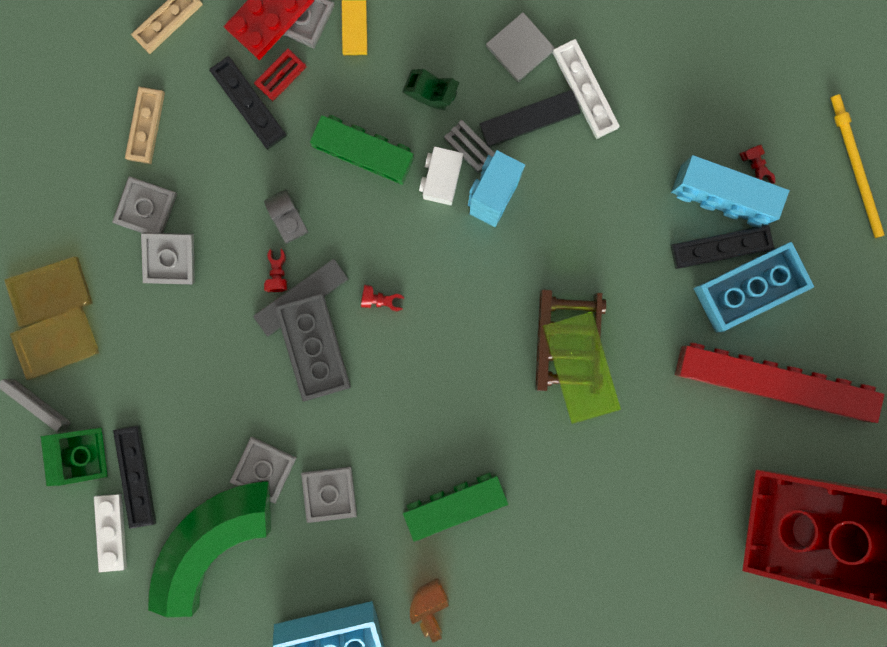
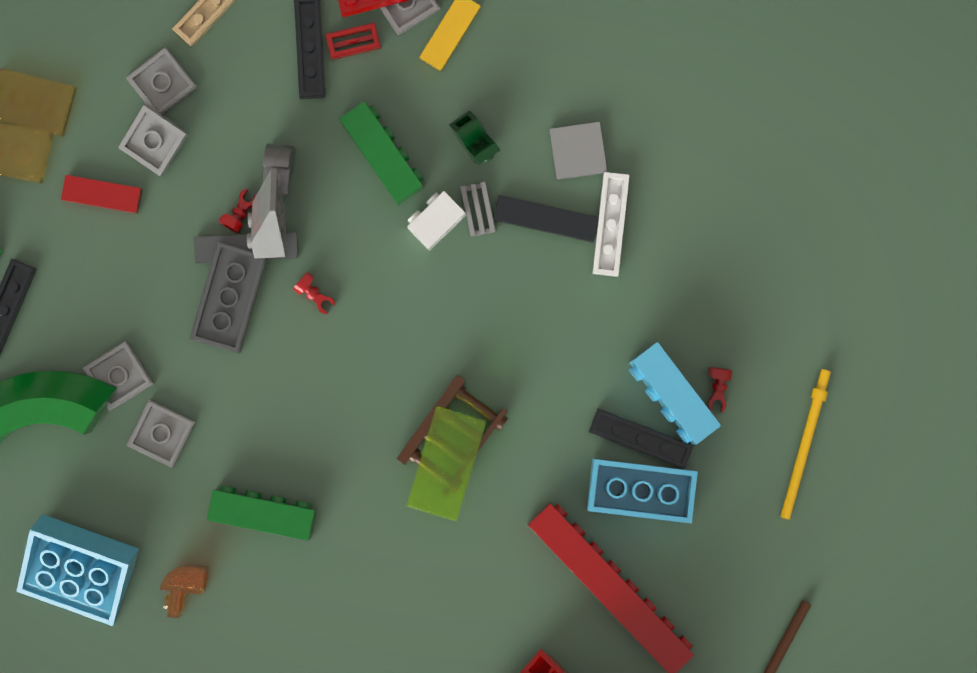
camera: 30 degrees right, 0 degrees up
(153, 330) = (101, 194): none -> red tile
(304, 261) = (268, 220): none -> light grey slope
(495, 188) = (468, 262): medium azure brick -> none

